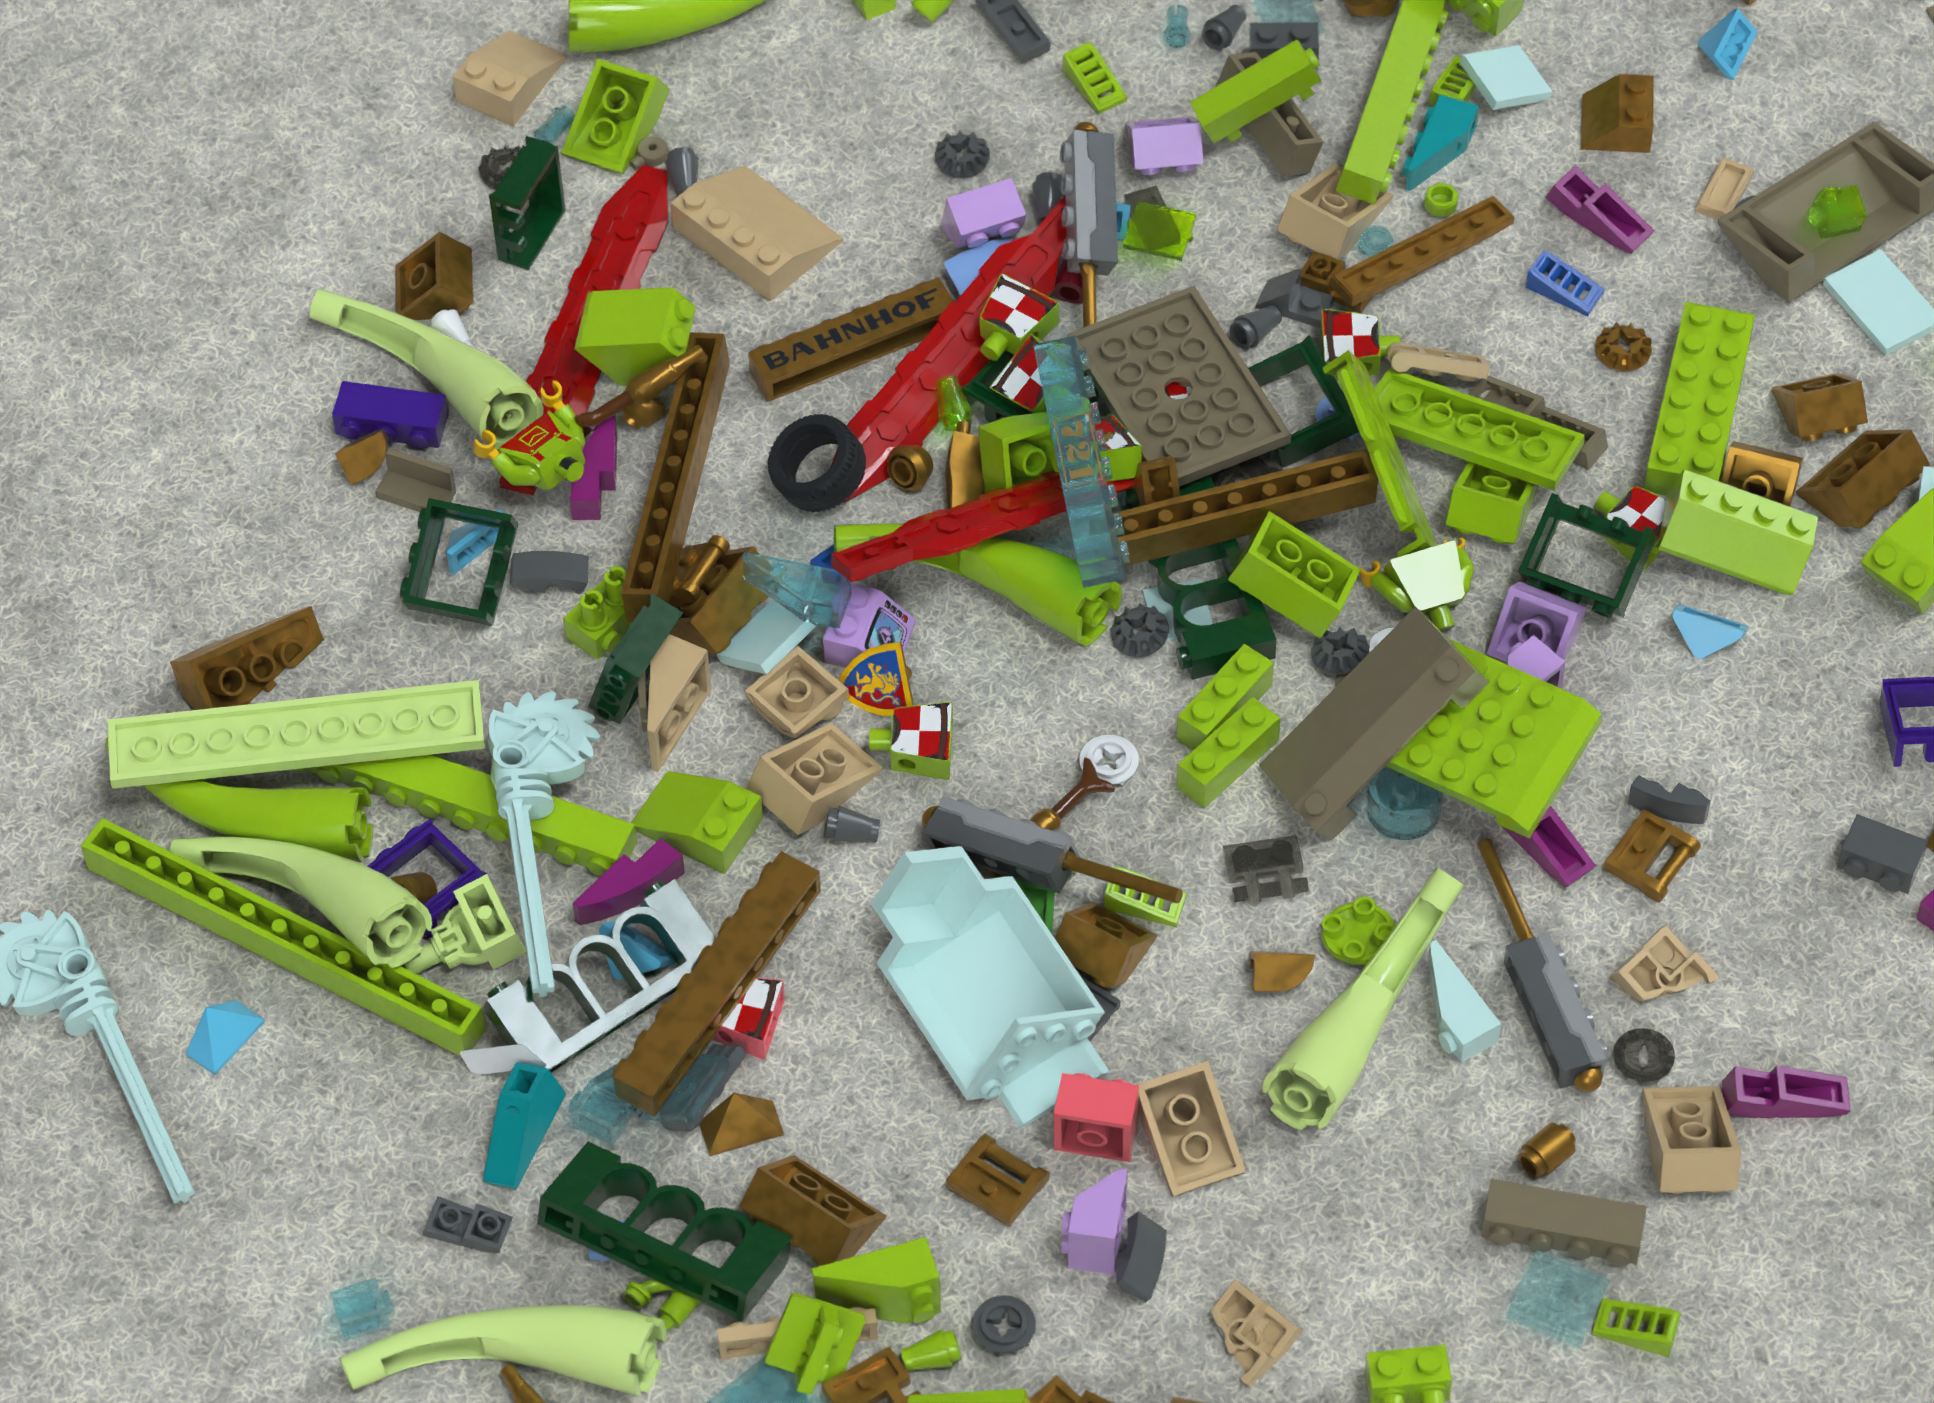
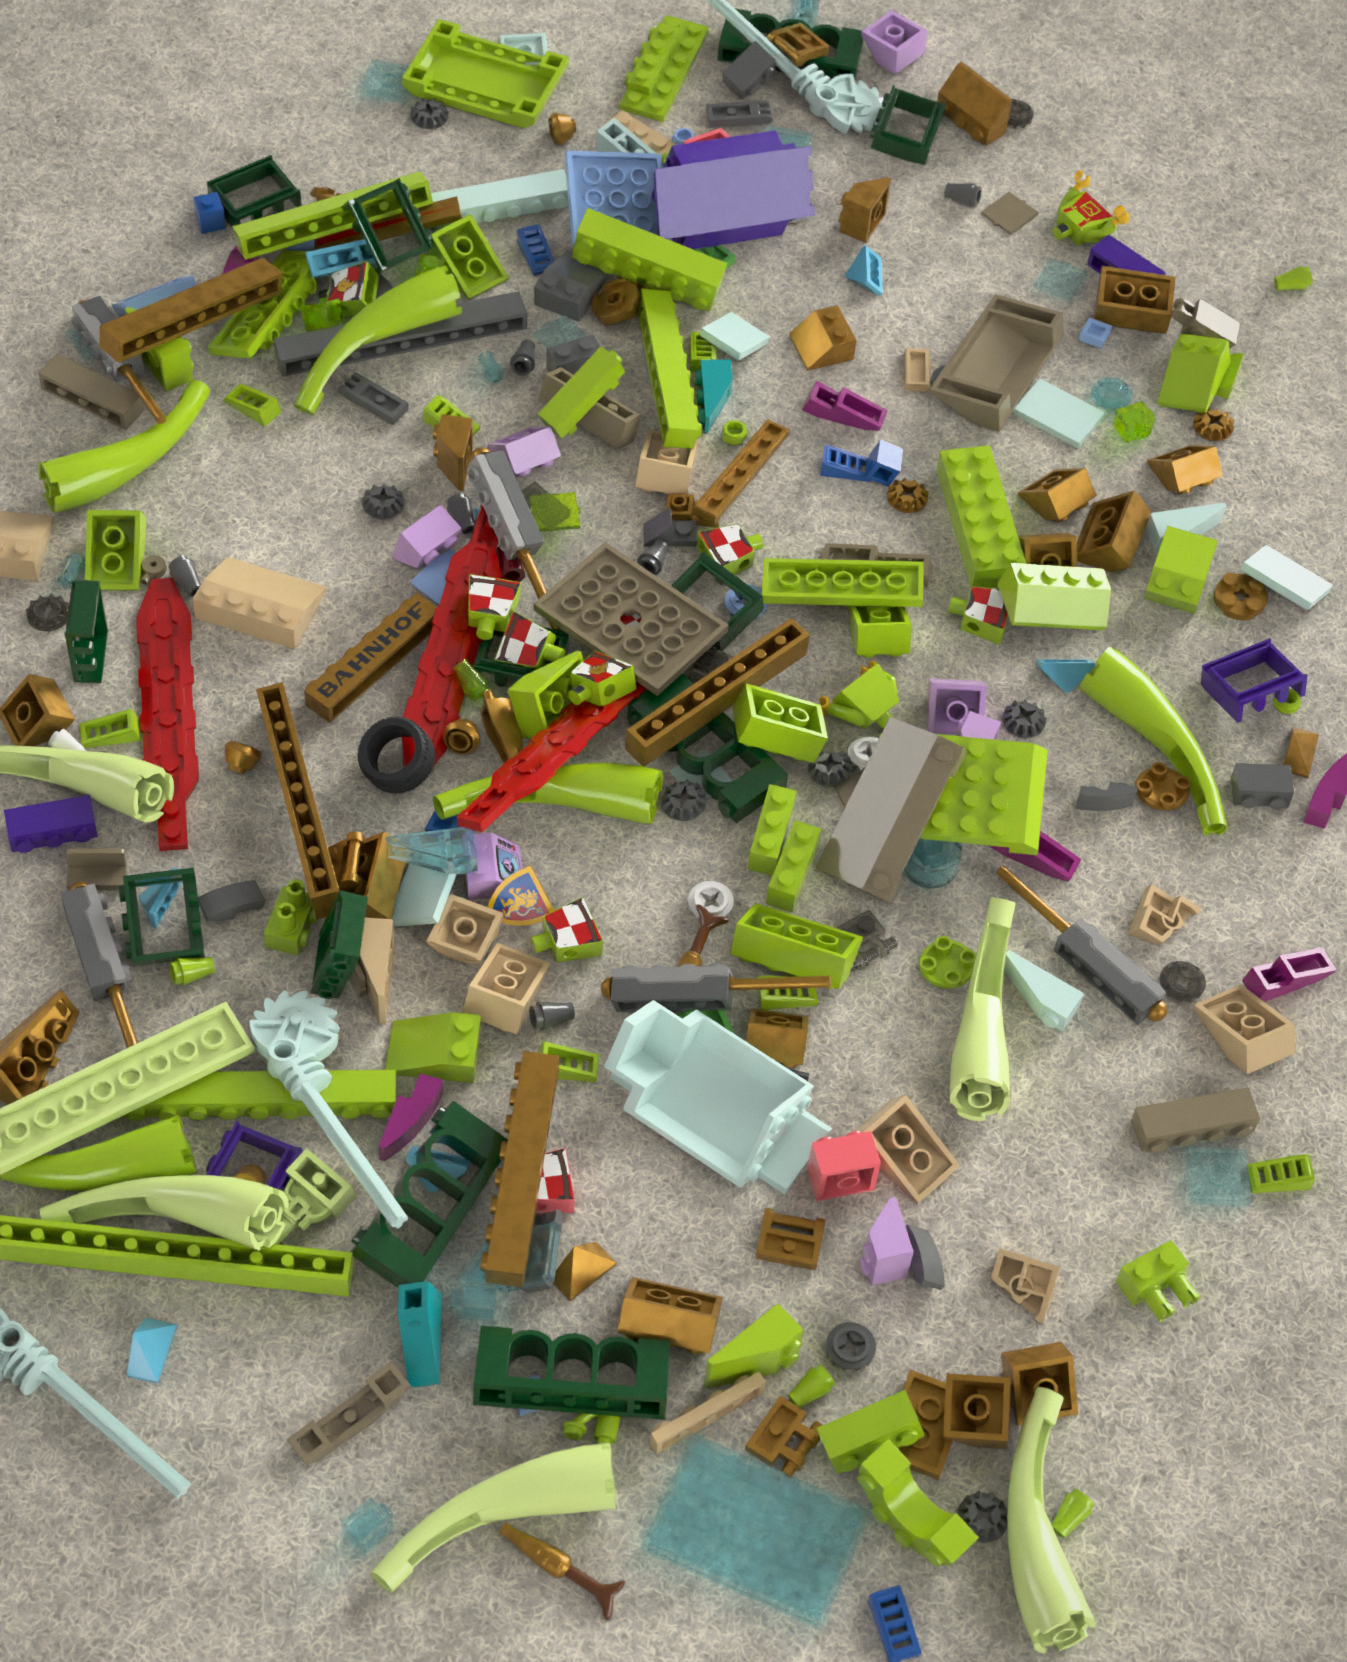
camera: 30 degrees left, 0 degrees up
(363, 455) = (46, 860): pearl gold brick -> none
(374, 575) = (98, 950): none -> piece
(402, 1189) = (350, 1417): none -> dark tan slope
(466, 633) = (190, 969): none -> lime cone
(467, 1227) = (416, 1427): dark grey slope -> none
(499, 1058) = (382, 1287): white sticker -> none
(531, 334) = (118, 719): none -> lime slope
(542, 451) = (189, 811): lime torso -> none
(598, 473) = (231, 815): magenta slope -> none
(634, 329) = (215, 701): lime slope -> none
(641, 388) = (241, 742): pearl gold piece -> none
(814, 1340) = (728, 1415): lime bracket -> none
(836, 899) = (568, 1054): none -> lime slope
(1073, 101) = (454, 447): none -> pearl gold slope
(1080, 461) = (602, 690): clear light blue brick -> none
(1156, 480) = (655, 689): pearl gold slope -> none
(1179, 845) = (795, 944): none -> lime slope
(1279, 970) = (908, 1010): pearl gold brick -> none
(1375, 240) = (705, 474): clear light blue plate -> none
(1382, 450) = (805, 619): lime slope -> none
(1435, 361) = (792, 543): tan plate -> none
(1547, 1150) = (1156, 1072): pearl gold brick -> none
(1586, 519) = (977, 621): dark green window -> none
(1608, 678) = (1021, 727): none -> dark grey gear
(1610, 296) = (884, 463): none -> blue brick
(1643, 846) = (1104, 837): pearl gold plate -> none
(1751, 814) = (1162, 787): none -> pearl gold dish
(1774, 700) = (1139, 703): none -> lime brick
(1837, 211) = (1004, 360): clear neon green brick -> none

